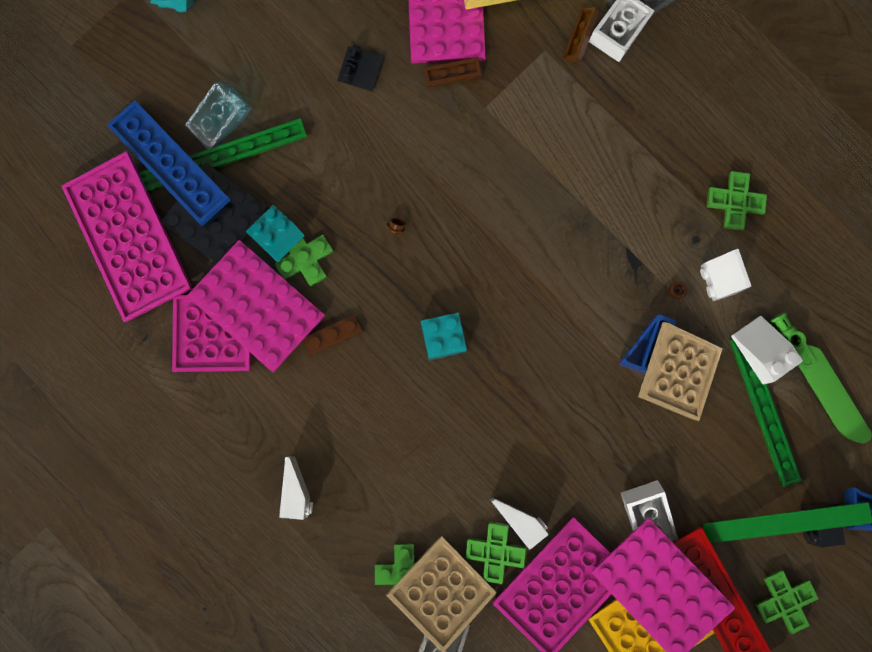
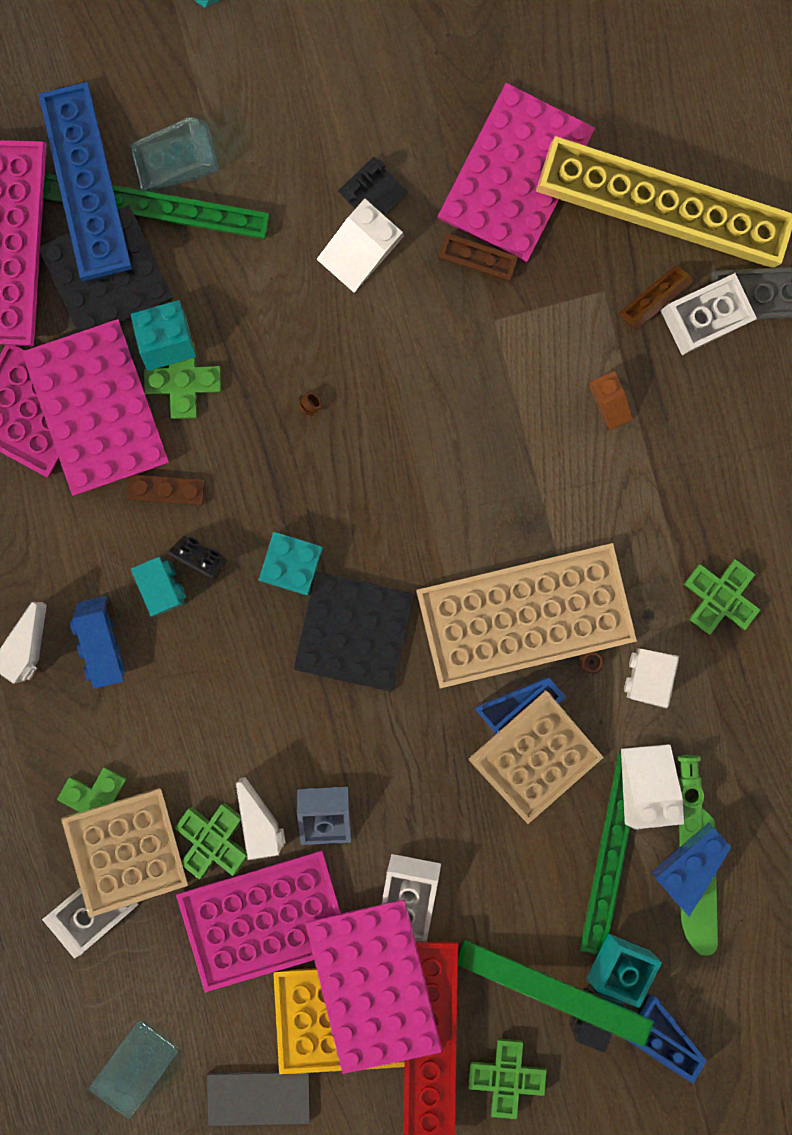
camera: 25 degrees right, 5 degrees up
(344, 462) = (97, 643): none -> blue wedge
(364, 400) = (159, 586): none -> teal brick
(371, 105) = (360, 245): none -> white slope
(371, 365) = (198, 557): none -> black hinge
(510, 358) = (353, 631): none -> black plate
(561, 492) = (323, 815): none -> sand blue slope
(590, 114) = (611, 400): none -> dark orange slope
(617, 284) = (526, 615): none -> tan plate
(821, 482) = (623, 970): none -> teal brick
(826, 386) = (692, 867): none -> blue wedge

